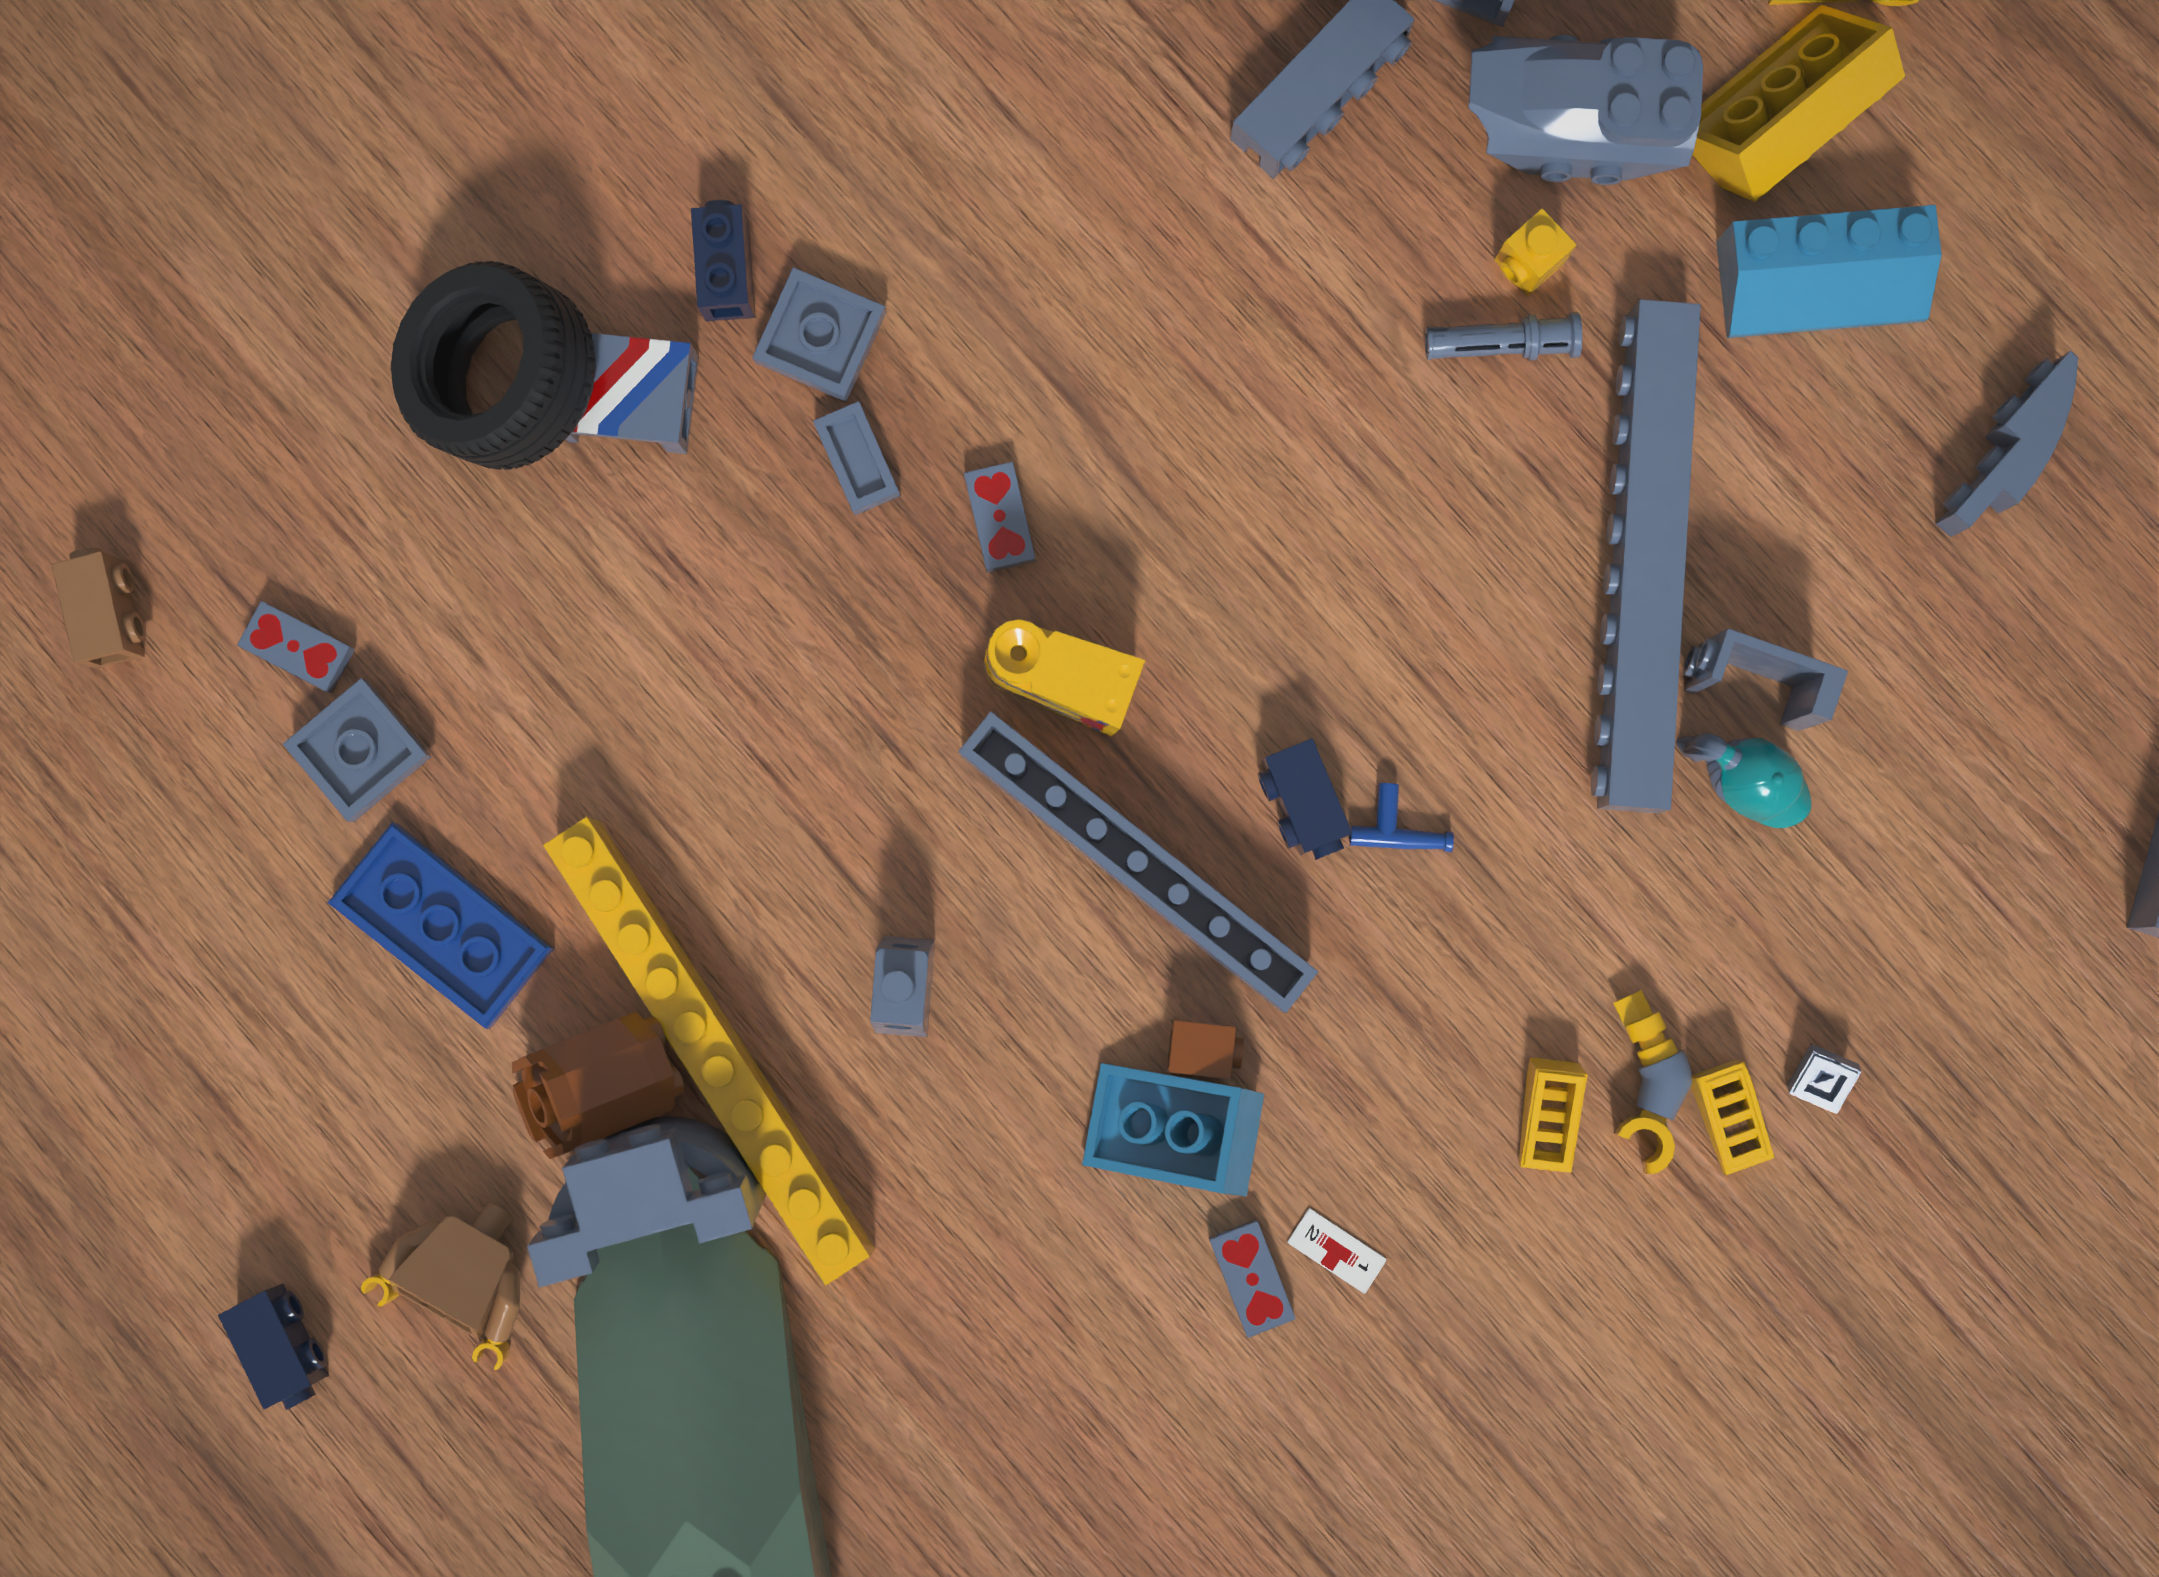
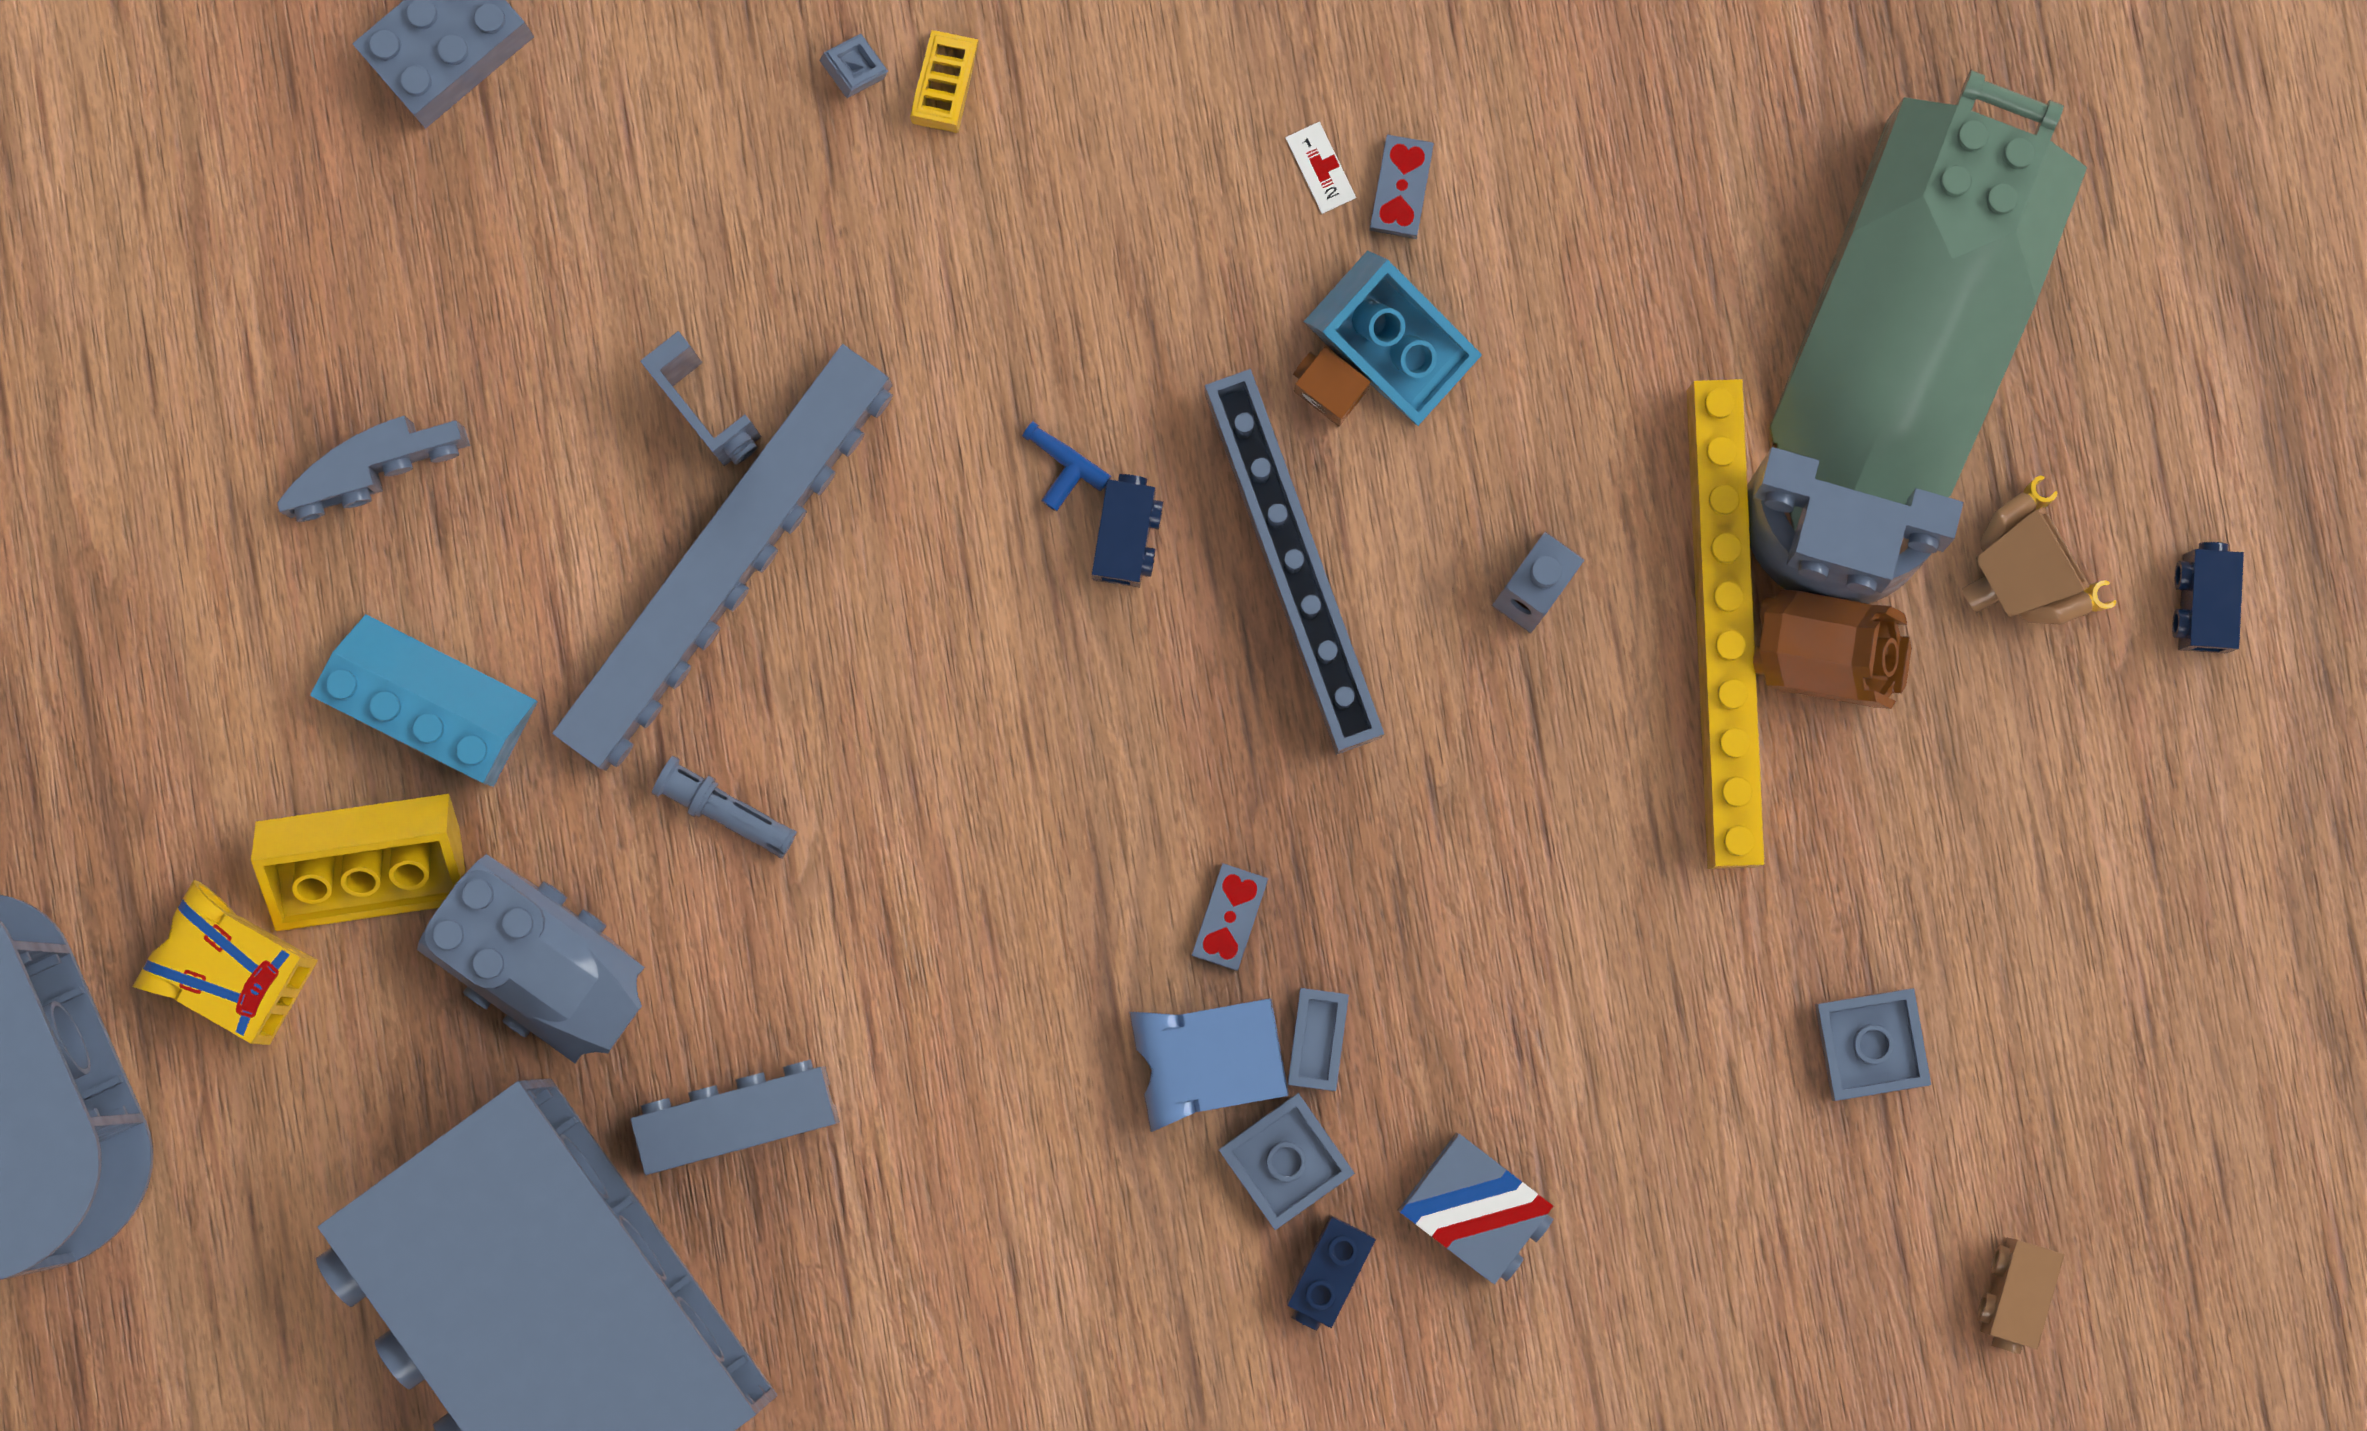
camera: 150 degrees left, 0 degrees up
(296, 647) = (1875, 1164): sand blue tile -> none
(437, 349) = (1626, 1324): black tyre -> none
(441, 925) = (1886, 860): blue tile -> none
(939, 379) = (1209, 1059): none -> medium blue piece
(1063, 674) = (1260, 746): yellow piece -> none
(1534, 252) = (656, 862): yellow brick -> none
(1535, 1090) = (1078, 197): yellow slope -> none
(1664, 1078) = (978, 144): yellow piece -> none
(1753, 777) = (756, 331): teal hair -> none

